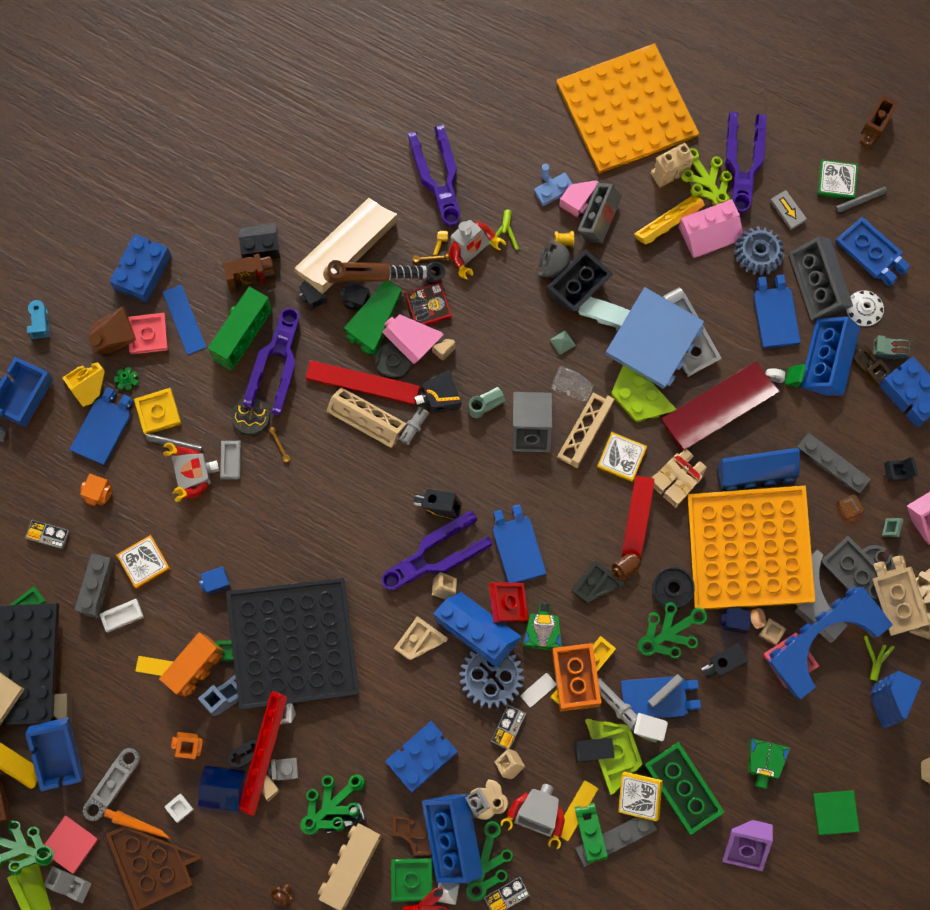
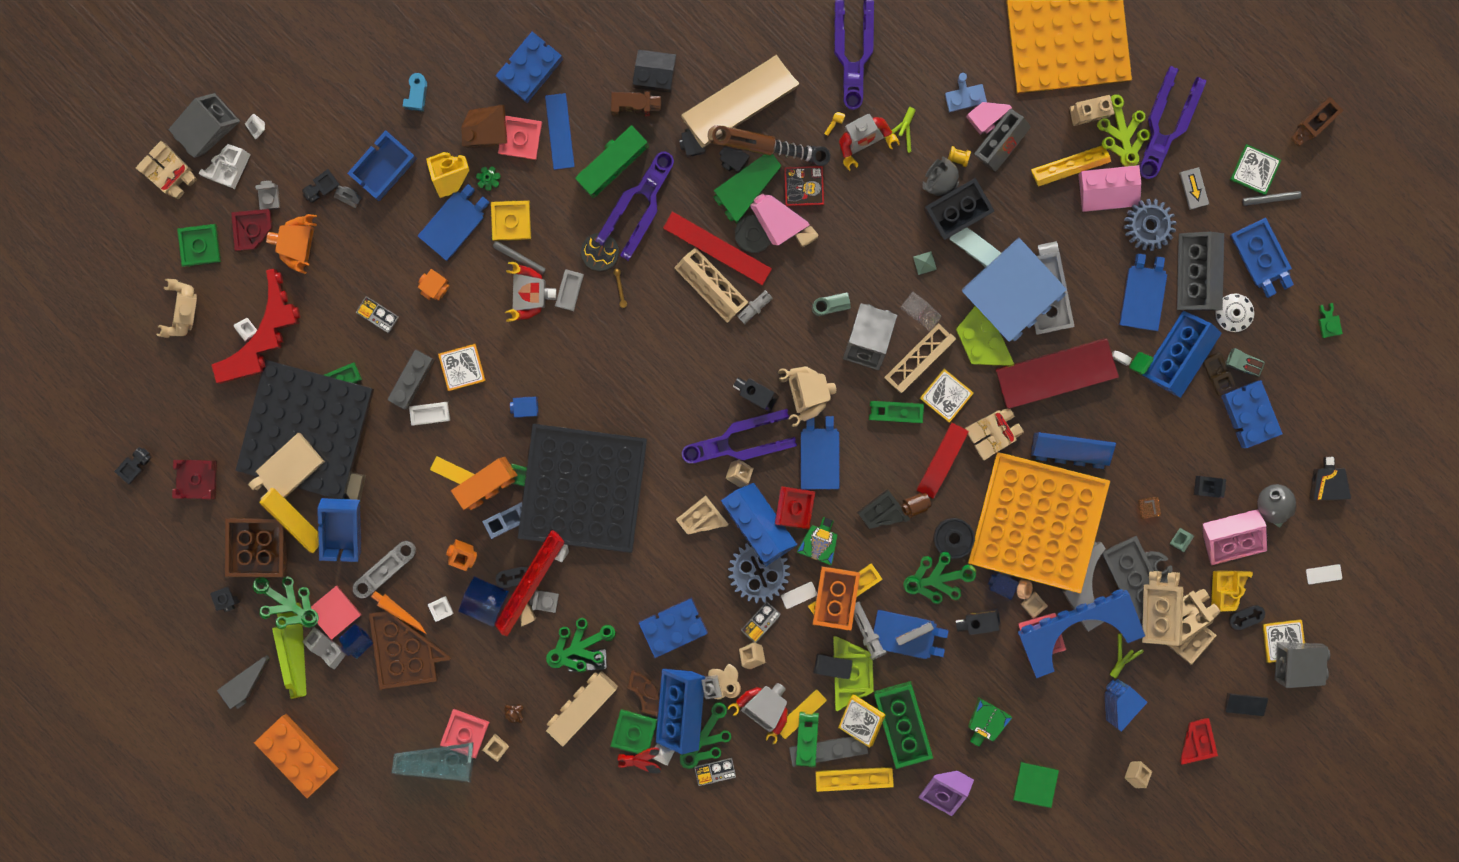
camera: 15 degrees right, 15 degrees up
(97, 867) = (355, 641): none -> clear blue brick
(416, 259) = (806, 134): pearl gold hinge -> none
(439, 394) = (788, 283): black torso -> none
(489, 488) = (808, 391): none -> tan torso
(579, 484) = (897, 412): none -> green plate
(650, 728) = (890, 663): white slope -> none
(651, 861) = (854, 779): none -> yellow plate
(833, 463) = (1147, 460): dark grey plate -> none

